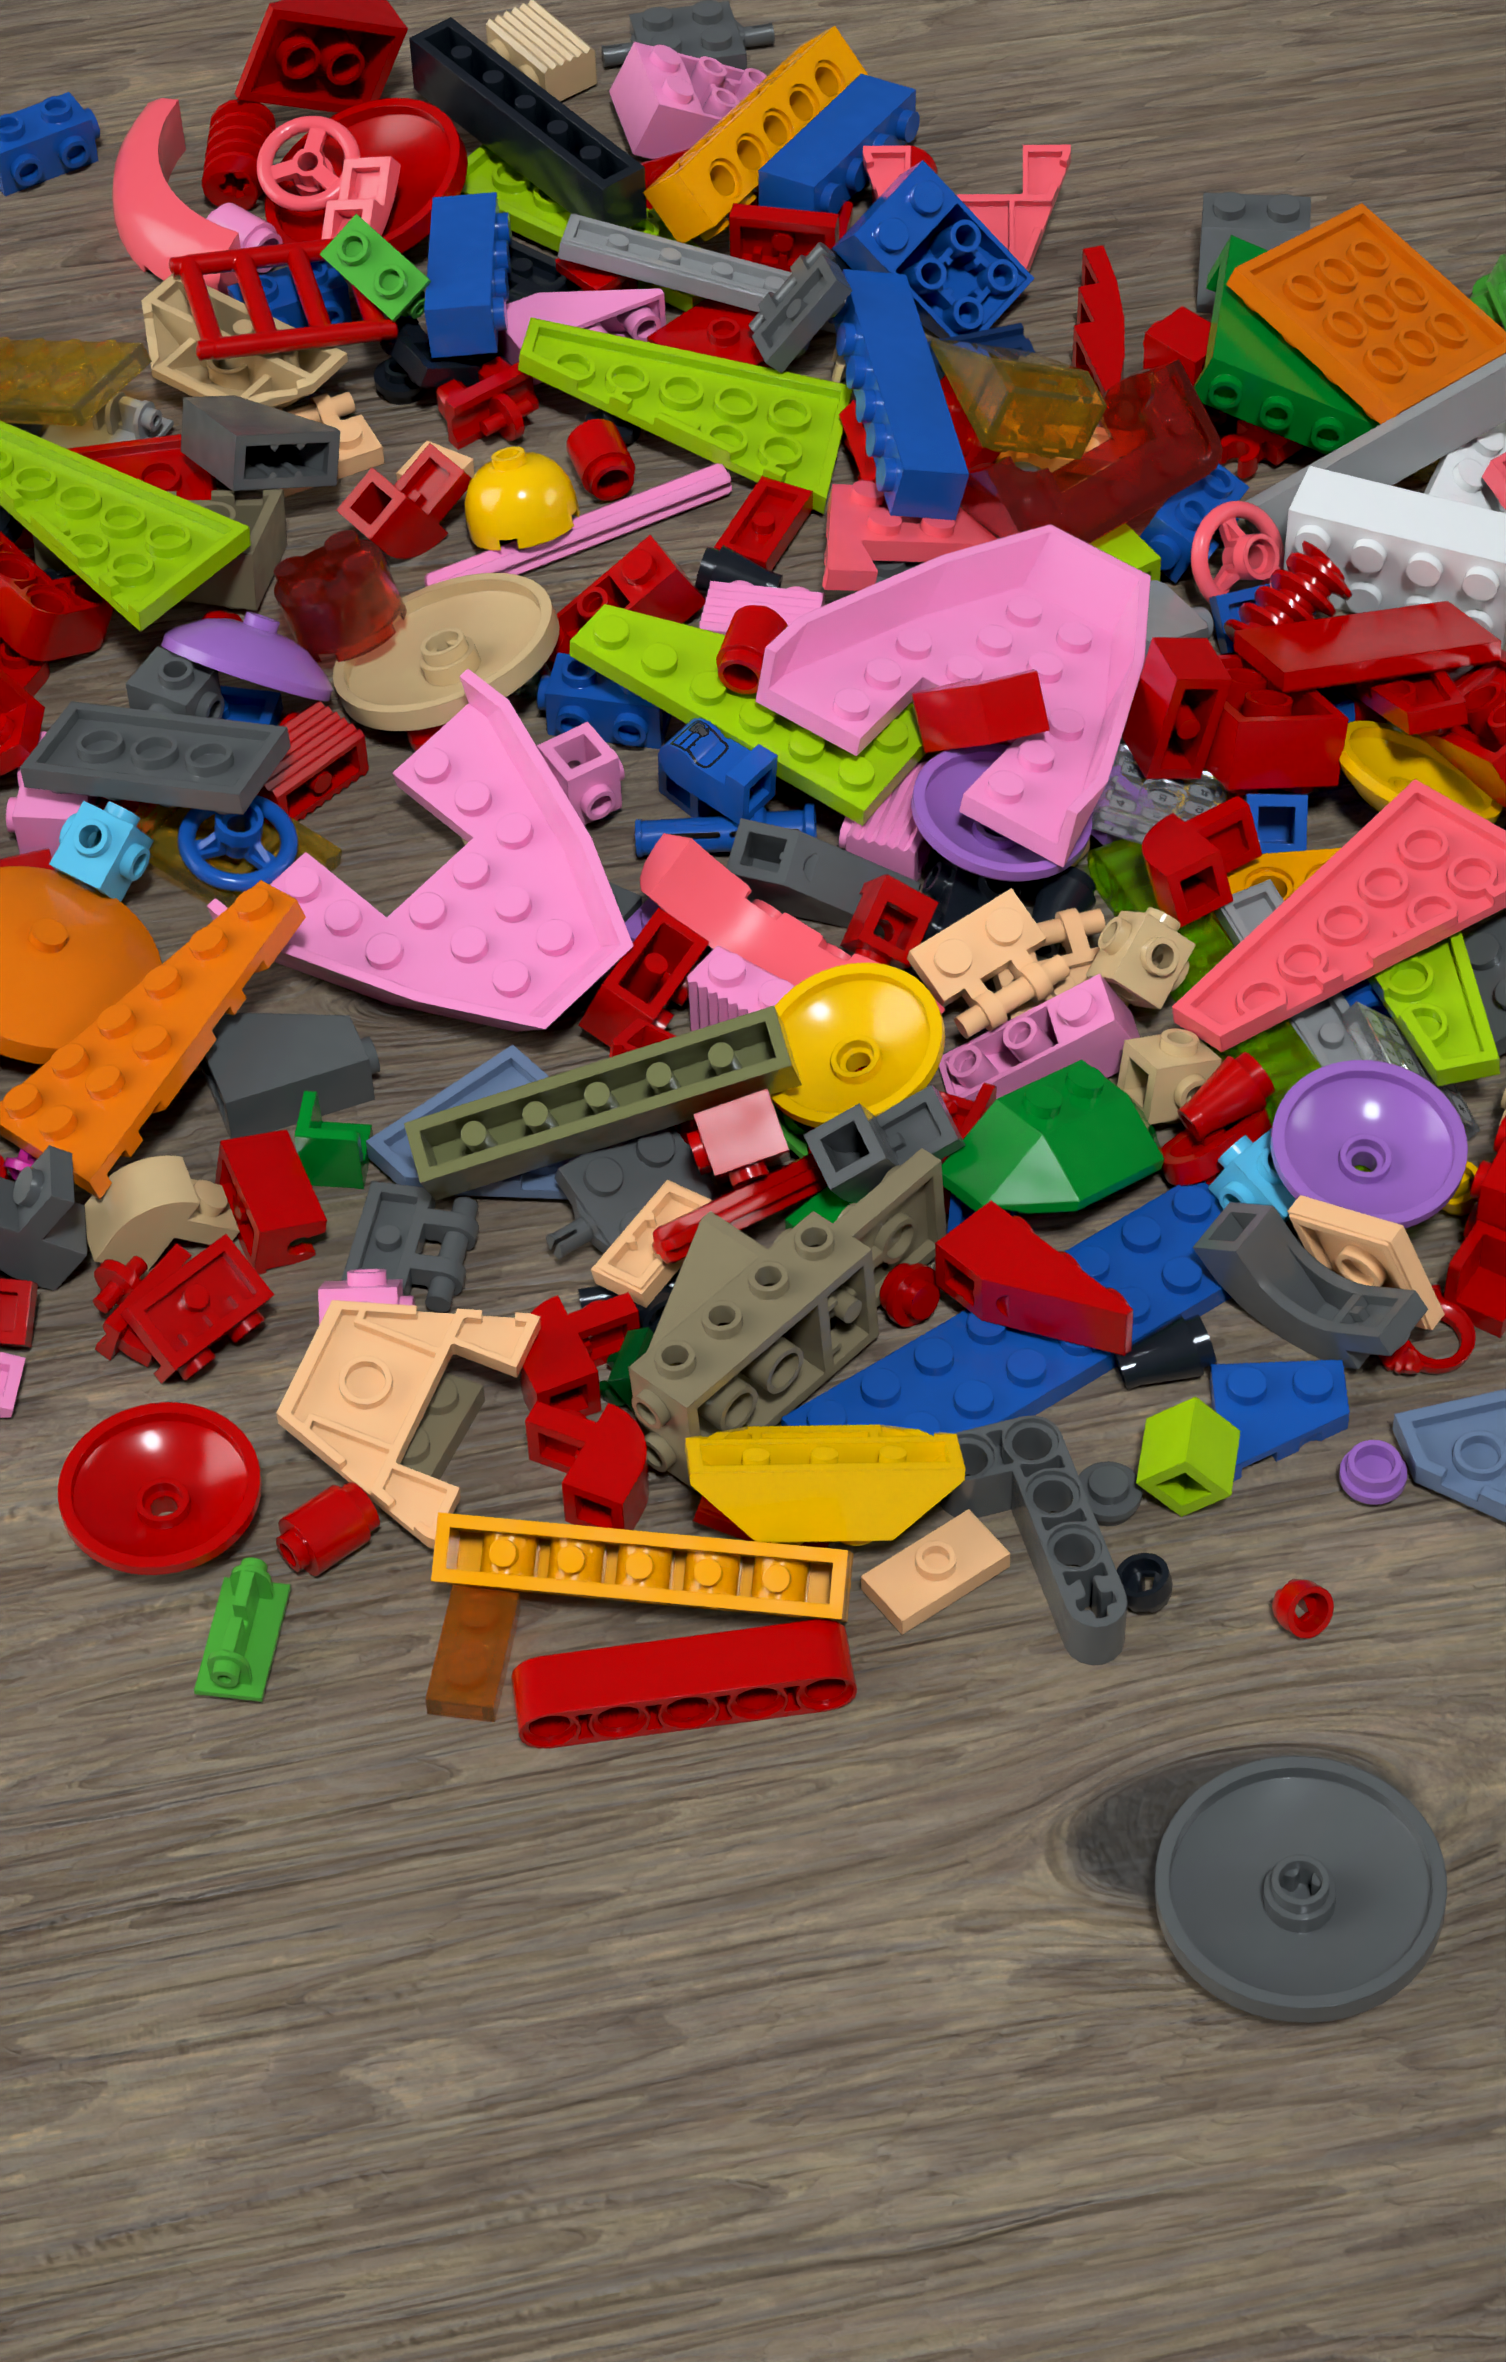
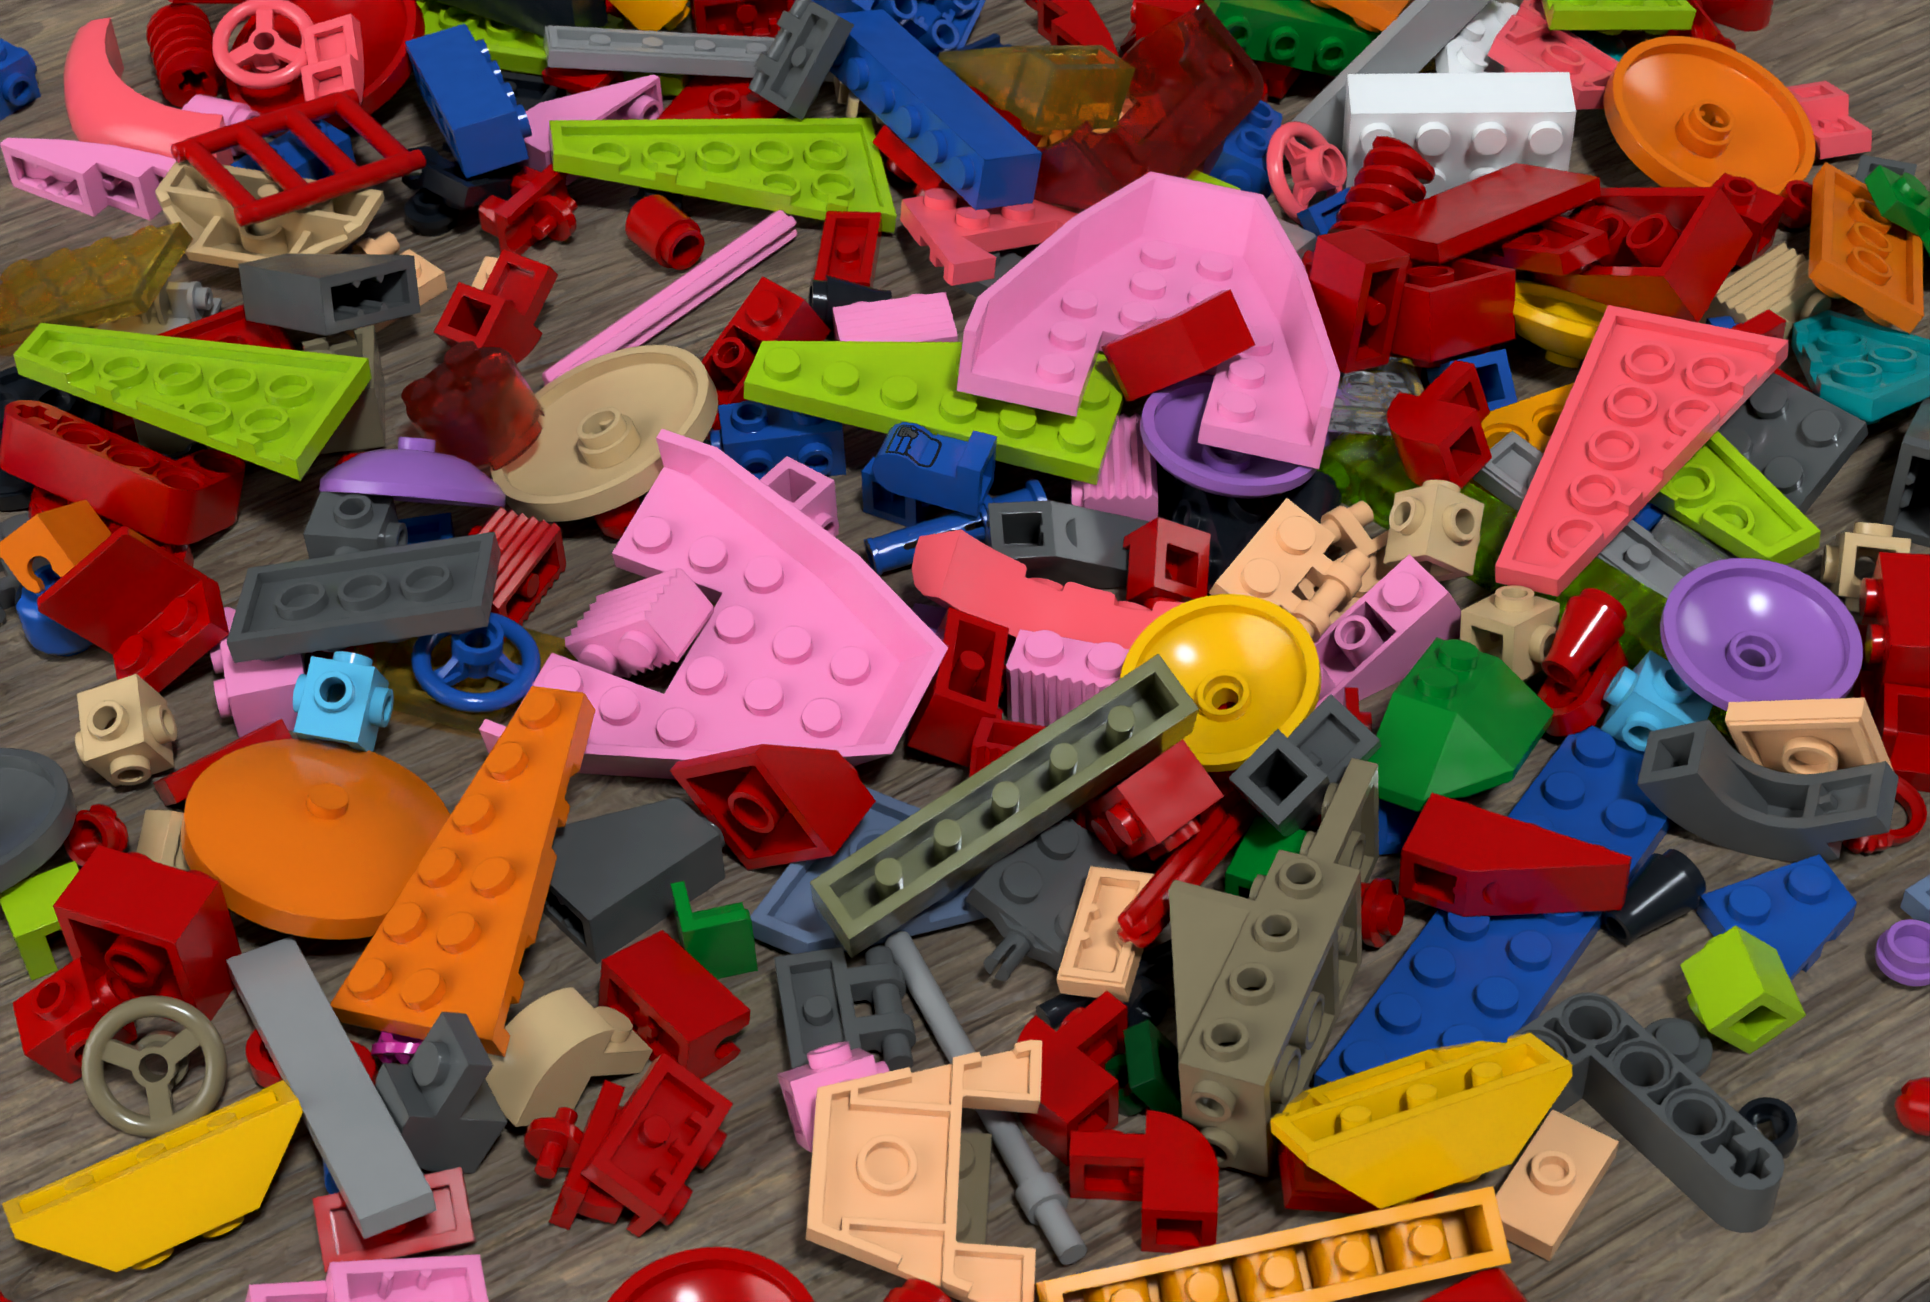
camera: 20 degrees left, 5 degrees down
(98, 258) = (87, 174): none -> bright pink slope
(377, 270) = (388, 107): bright green hinge -> none
(390, 849) = (641, 625): none -> bright pink brick
(427, 1044) = (777, 801): none -> red slope
(499, 1444) = (1037, 1190): none -> light grey bar
(519, 499) = (607, 281): yellow cylinder -> none
(744, 647) = (931, 343): red brick -> none

